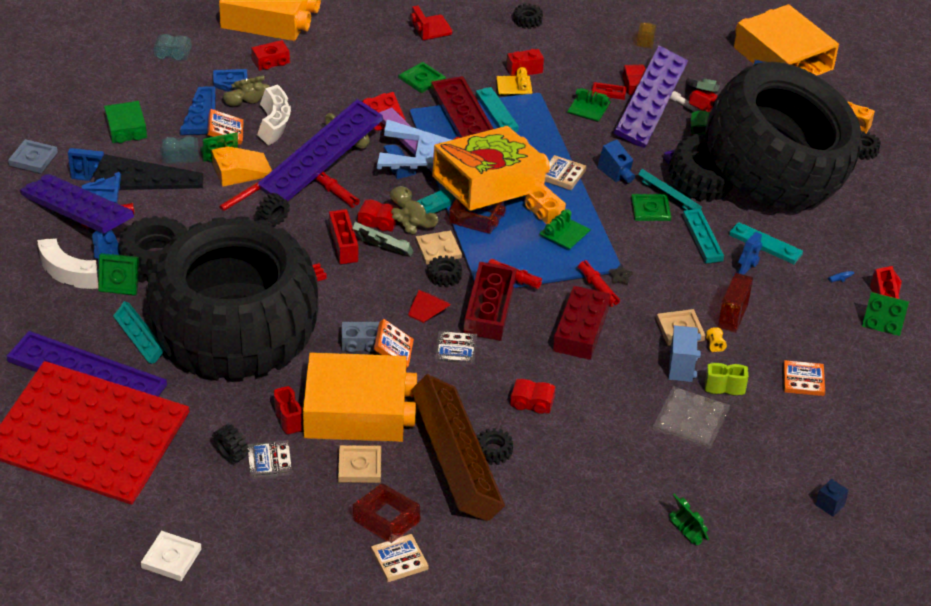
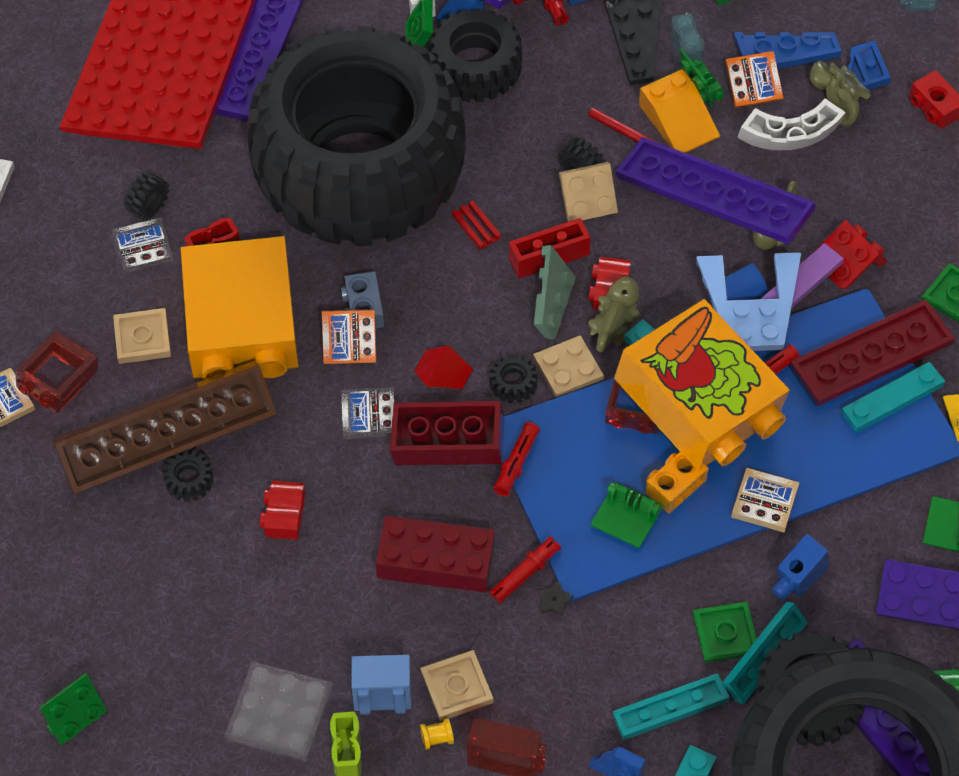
camera: 85 degrees right, 15 degrees up
(301, 210) = (588, 192): none -> tan plate
(332, 185) = (665, 223): red pin -> none

